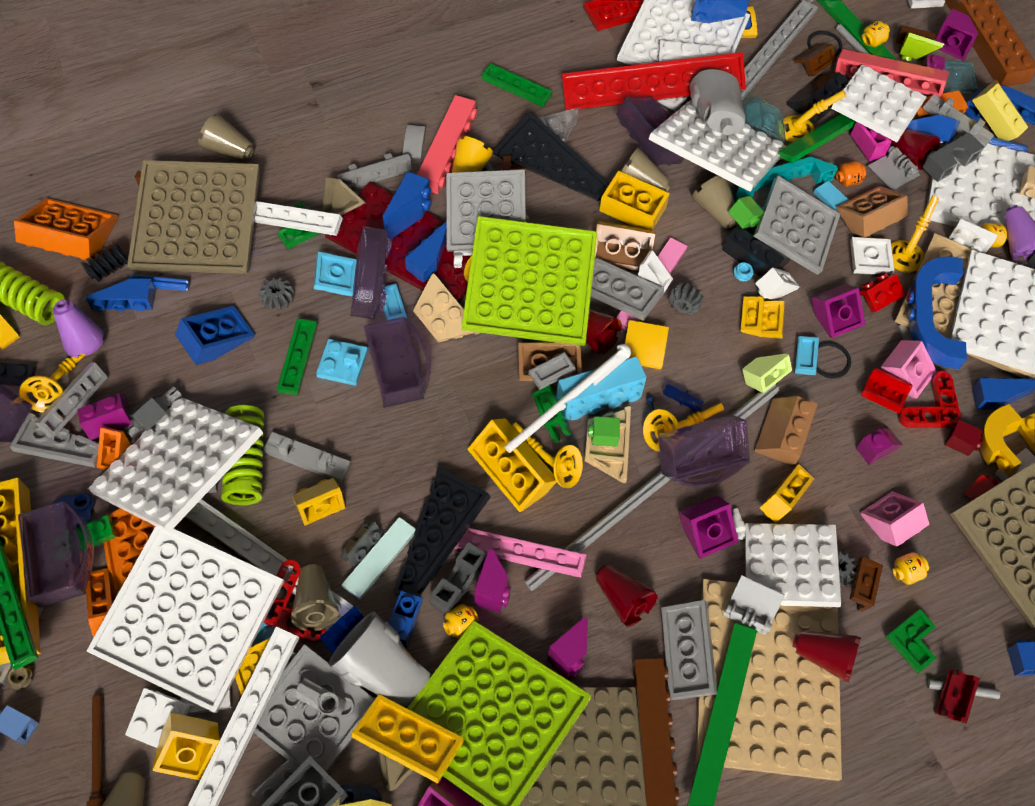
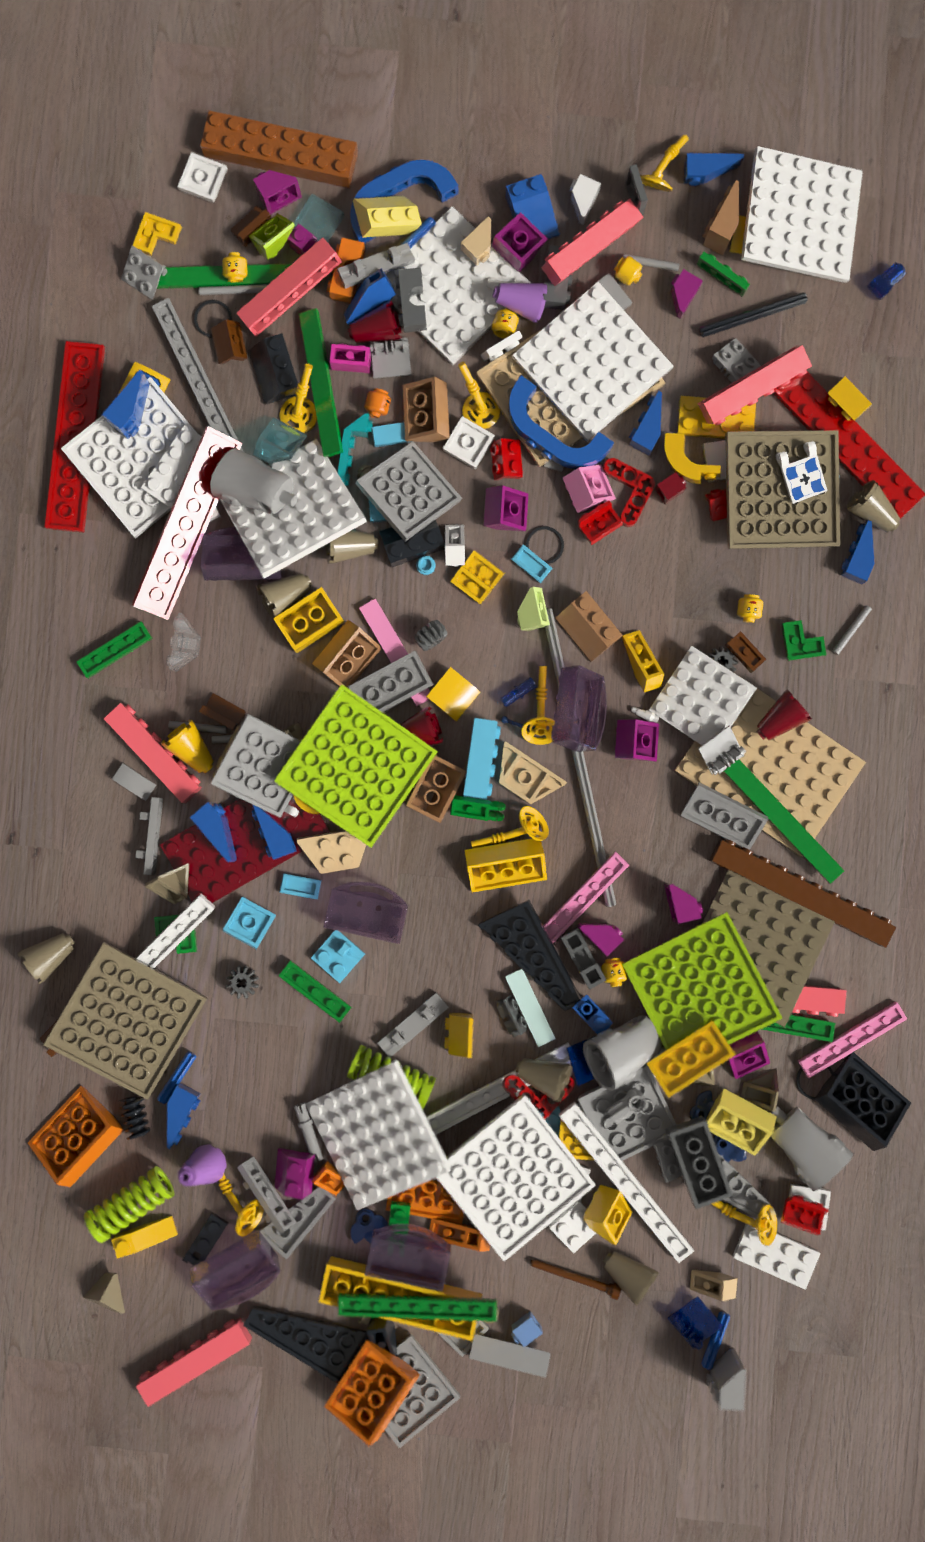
camera: 60 degrees left, 25 degrees up
(146, 414) = (315, 1140): dark grey brick -> none
(213, 334) = (257, 1051): blue slope -> none
(370, 269) = (272, 897): clear purple piece -> none
(544, 153) = (215, 670): black wing -> none
(552, 370) = (448, 793): light grey tile -> none
(595, 377) = (478, 765): white bar -> none
(605, 431) = (520, 778): bright green brick -> none
(625, 594) = (657, 838): dark red cone -> none
(654, 271) = (394, 647): white slope -> none
(746, 212) = (379, 532): bright green brick -> none
(878, 445) = (641, 559): magenta slope -> none
(879, 103) = (322, 327): white plate -> none
(896, 518) = (705, 590): bright pink slope -> none
(957, 696) = (857, 641): dark red hinge -> none

